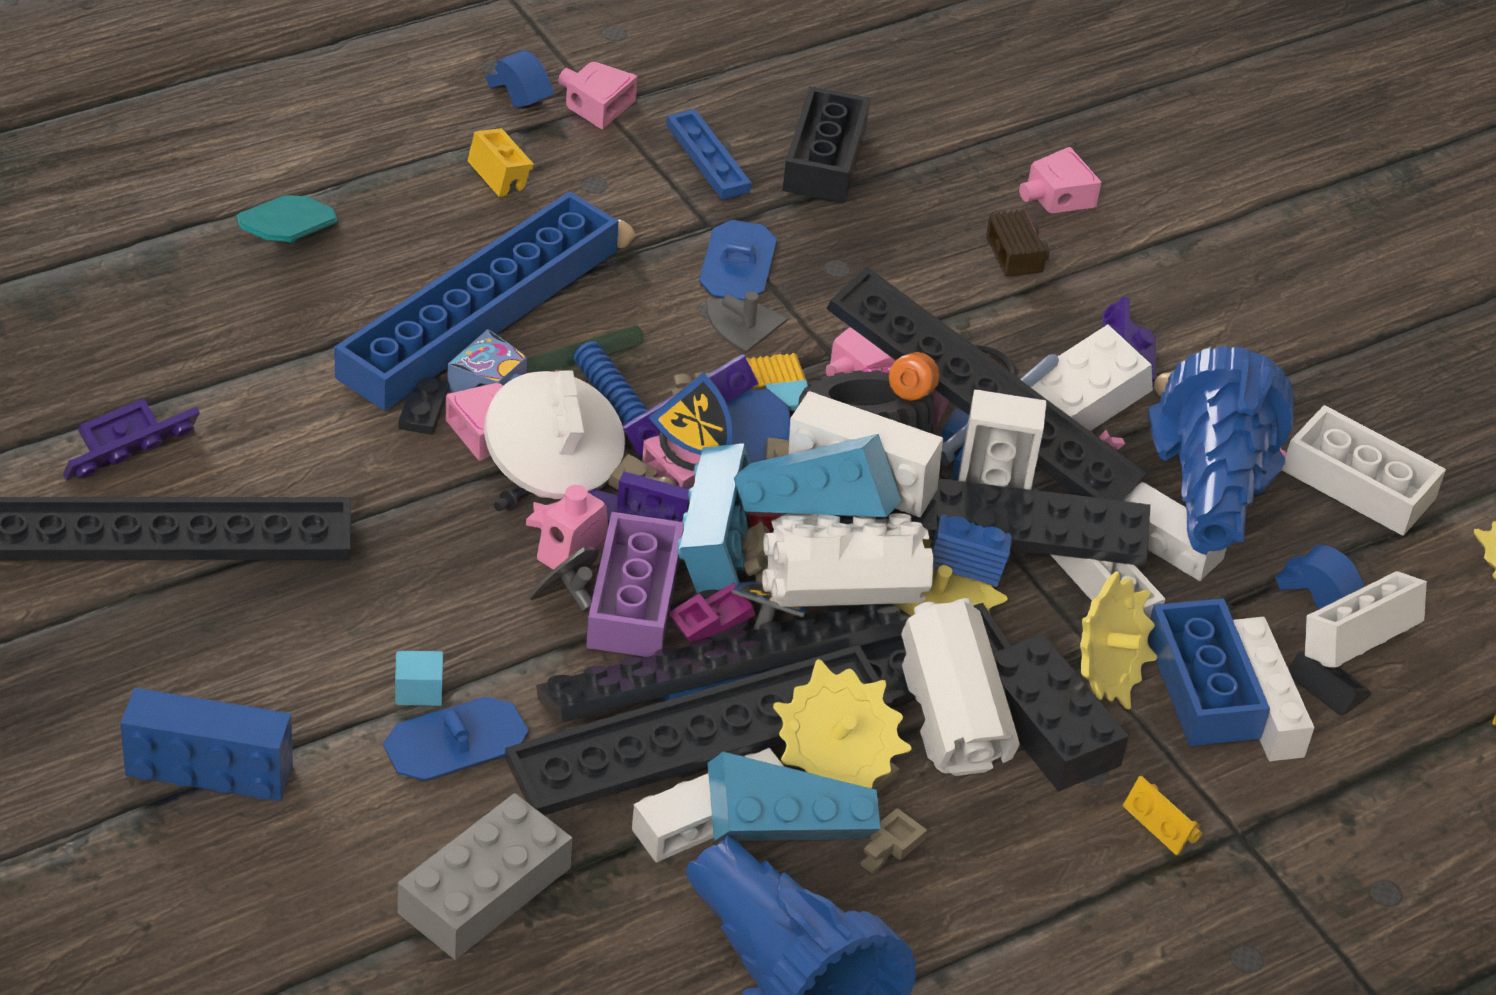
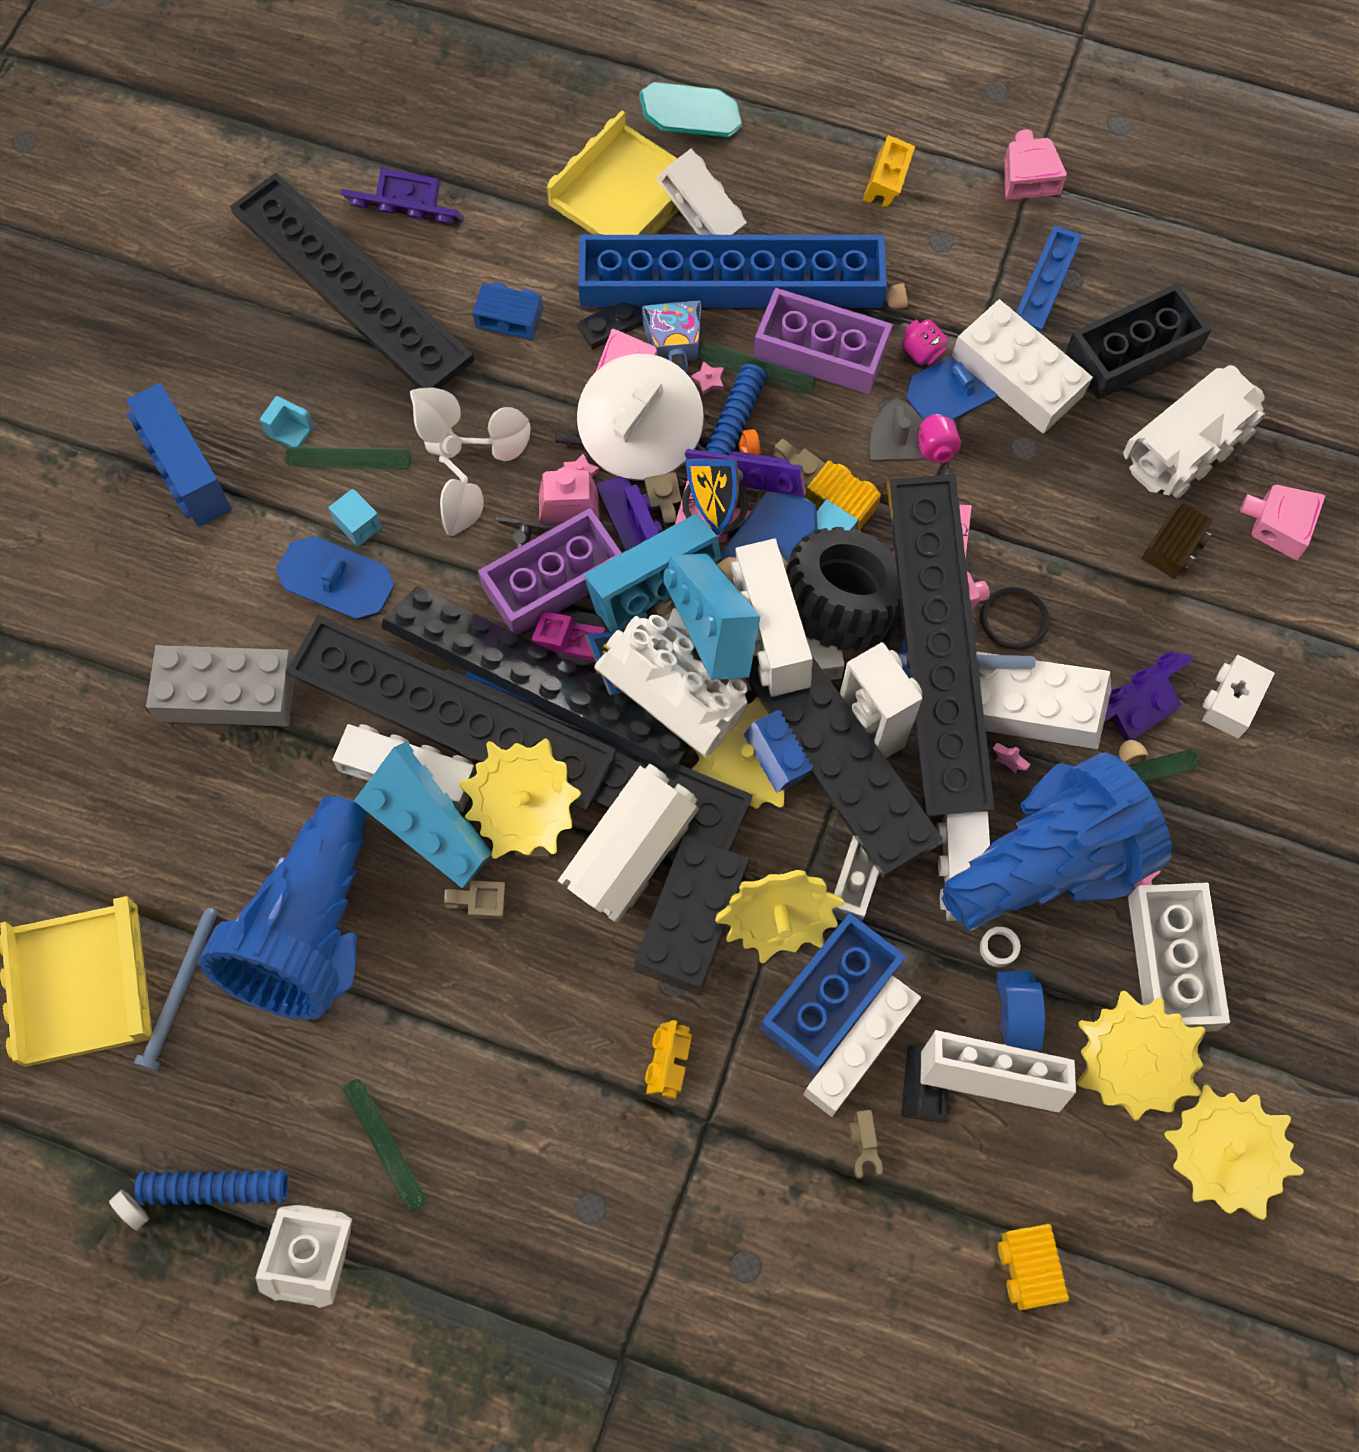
camera: 55 degrees right, 25 degrees up
(258, 661) = (286, 423): none -> medium azure panel
(300, 307) = (614, 184): none -> light yellow panel
(334, 450) = (508, 310): none -> blue brick
(344, 648) = (348, 457): none -> clear green axle
(389, 261) = (700, 196): none -> white brick
(423, 568) = (434, 416): none -> white plant
(523, 78) = (985, 115): blue brick -> none
(613, 293) = (822, 340): none -> medium lavender brick
(653, 394) = (750, 442): none -> orange tile
(683, 247) = (924, 342): none -> dark pink head
(772, 212) = (1021, 366): none -> white brick
(780, 297) = (938, 438): none -> dark pink head
(914, 376) = (880, 589): orange head -> none
(943, 168) = (1195, 432): none -> white brick
(1180, 303) = (1233, 713): none -> white brick
(1254, 575) = (988, 957): none -> white piece
(1346, 740) = (863, 1133): none -> dark tan plate
(1425, 537) = (1140, 1057): none -> light yellow piece

